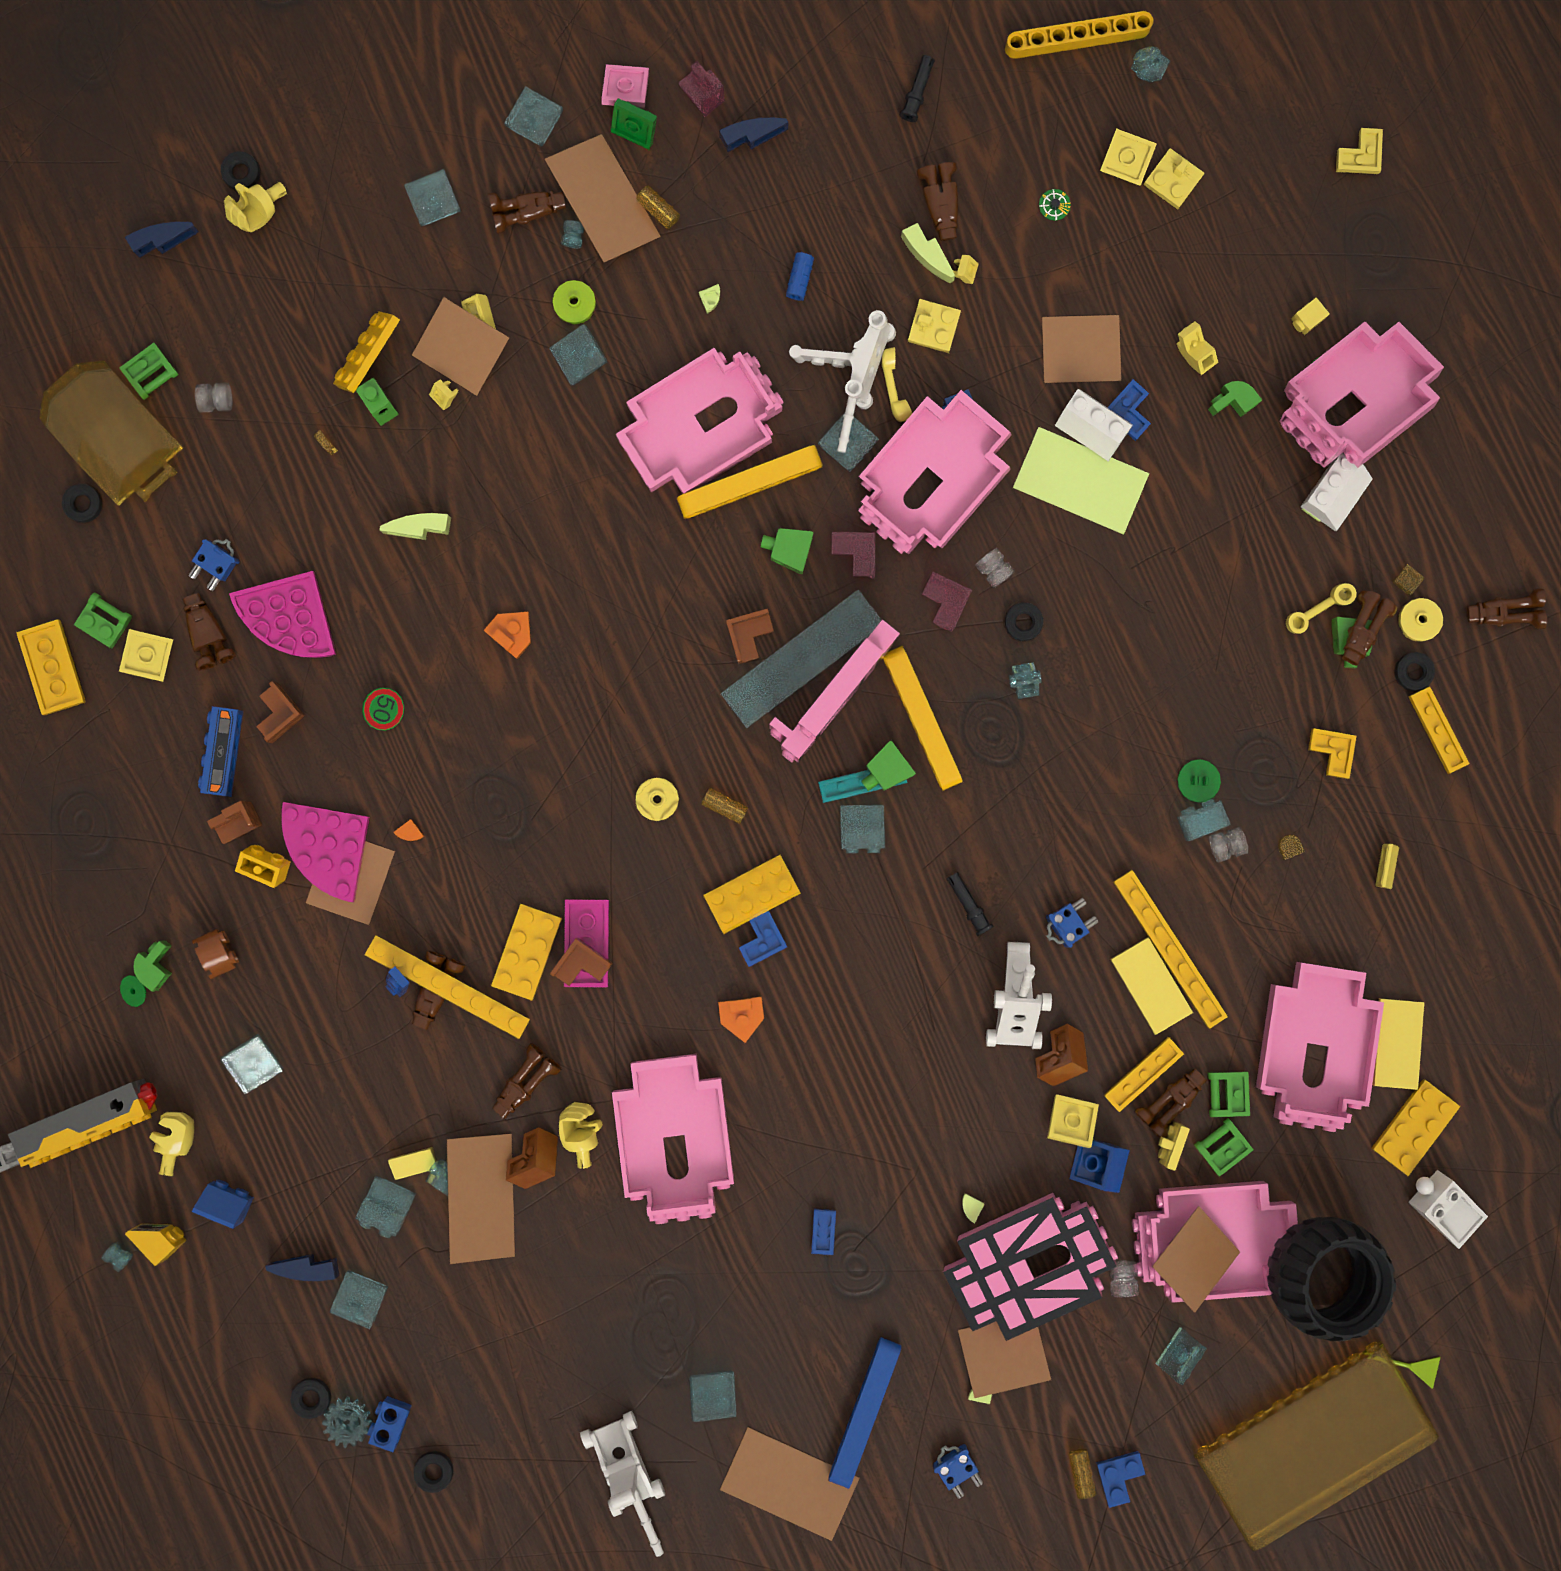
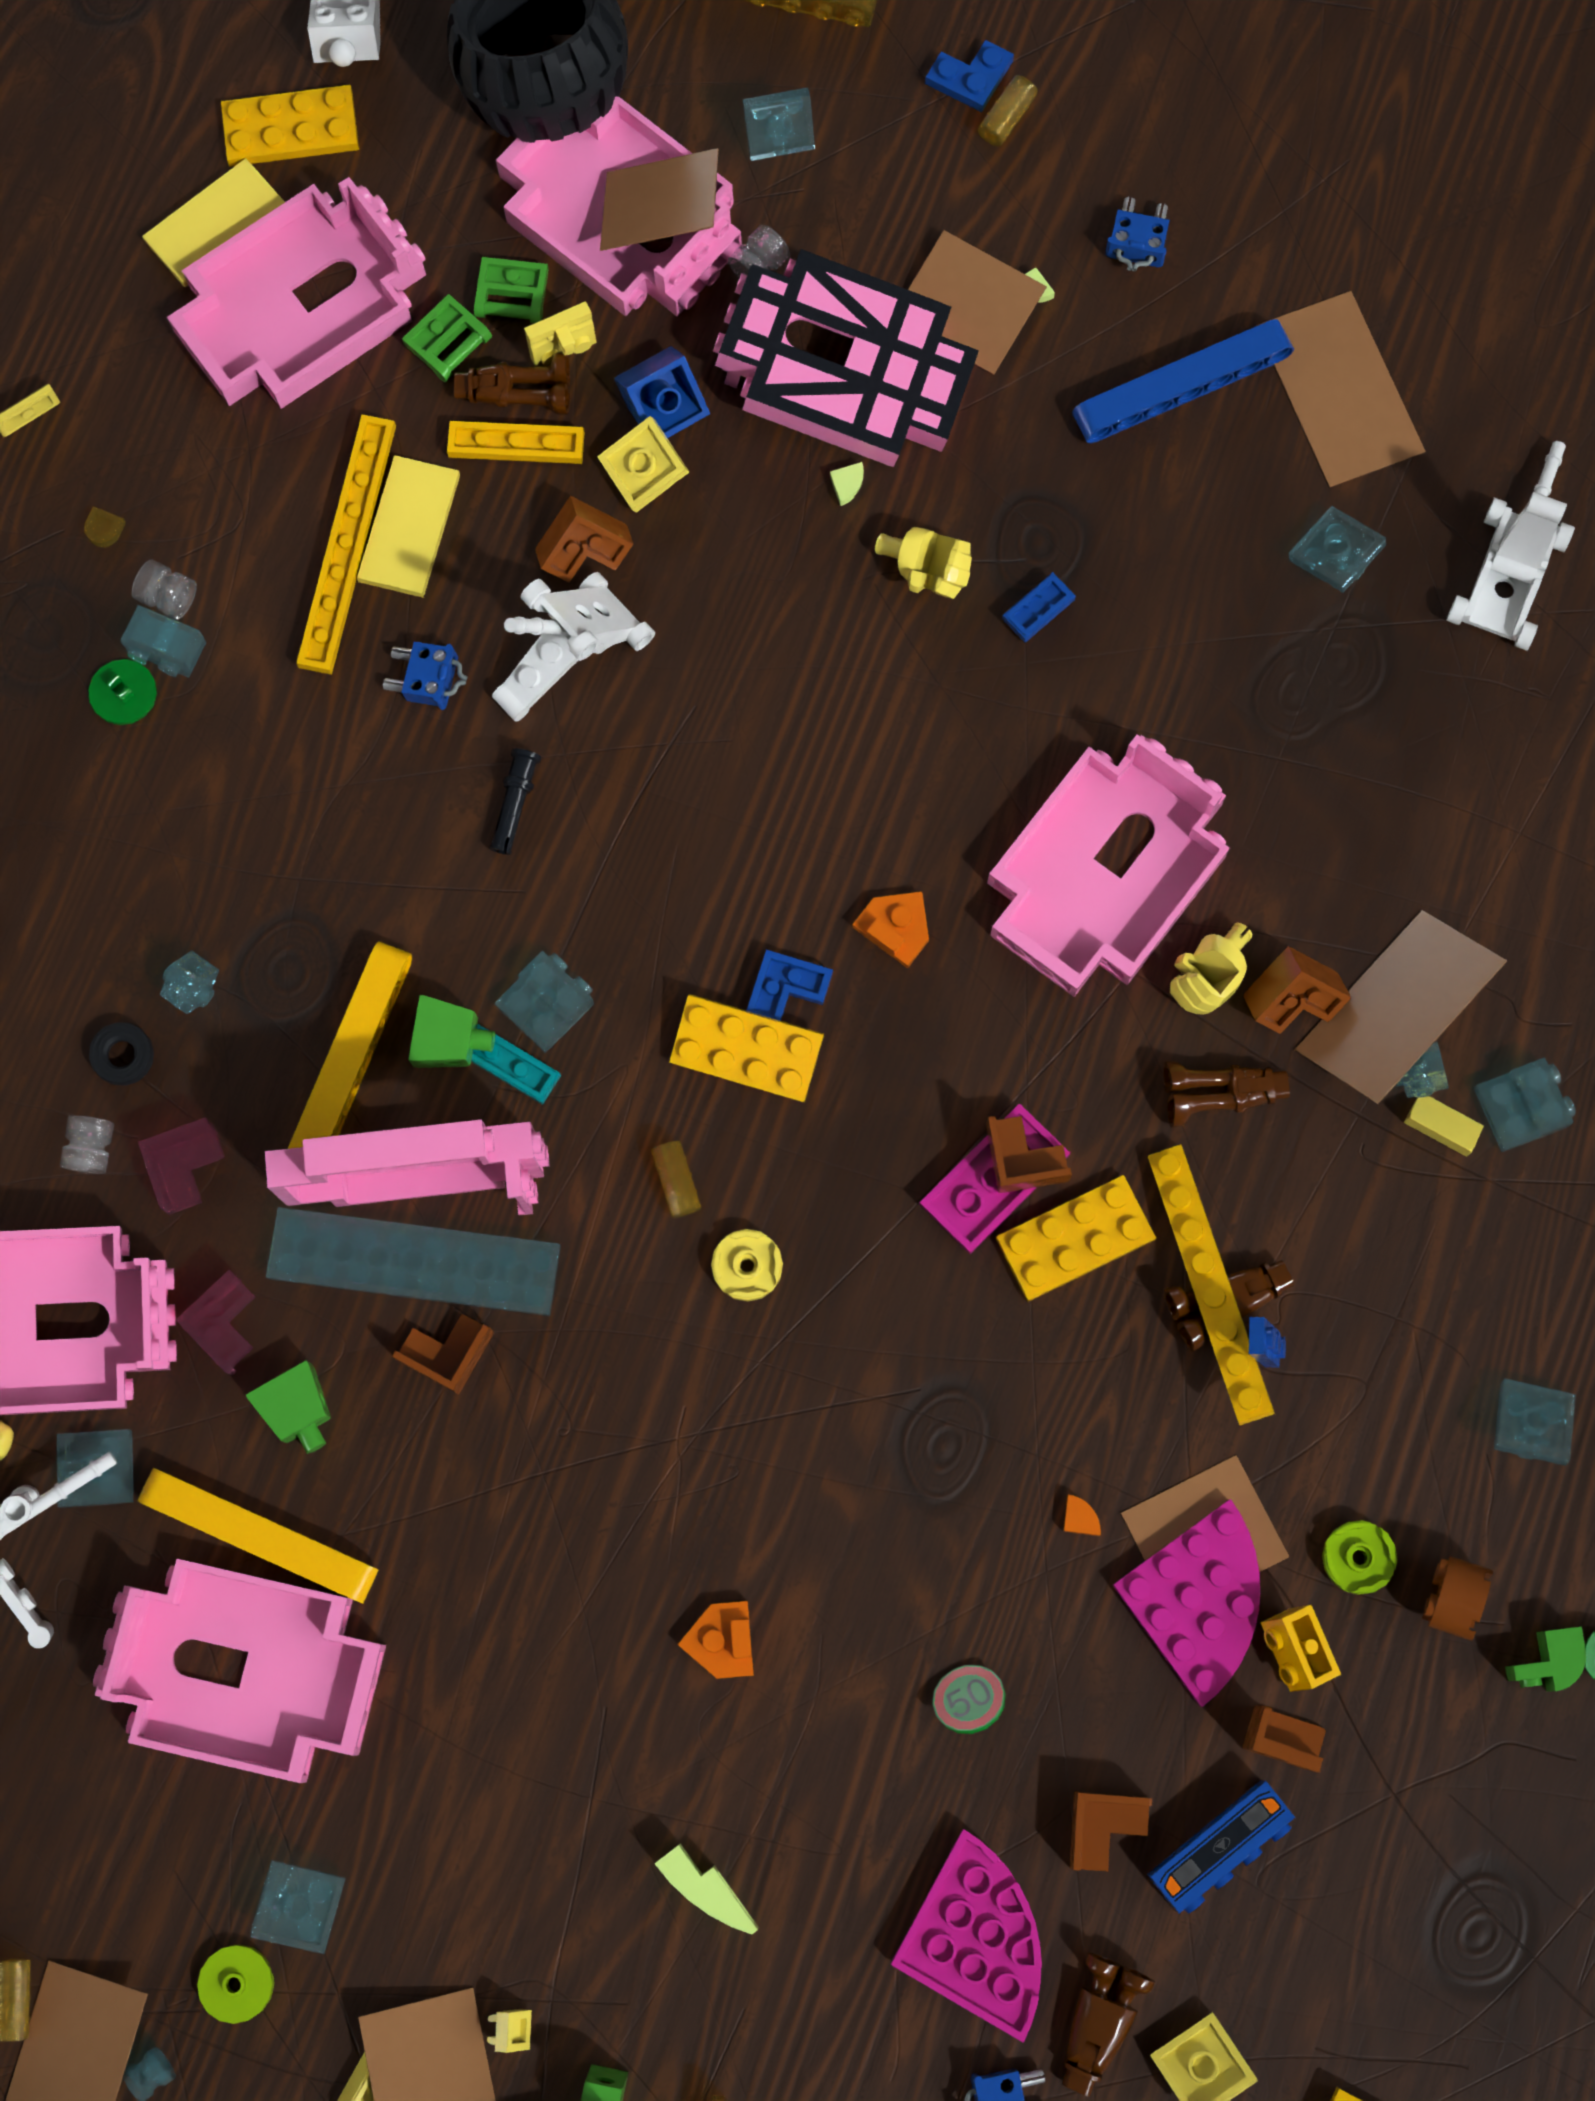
camera: 130 degrees left, 10 degrees down
(263, 933) = (1378, 1553): none -> lime plate
(710, 297) = (70, 1816): yellowish green tile -> none
(893, 1203) = (929, 560): none -> light yellow piece

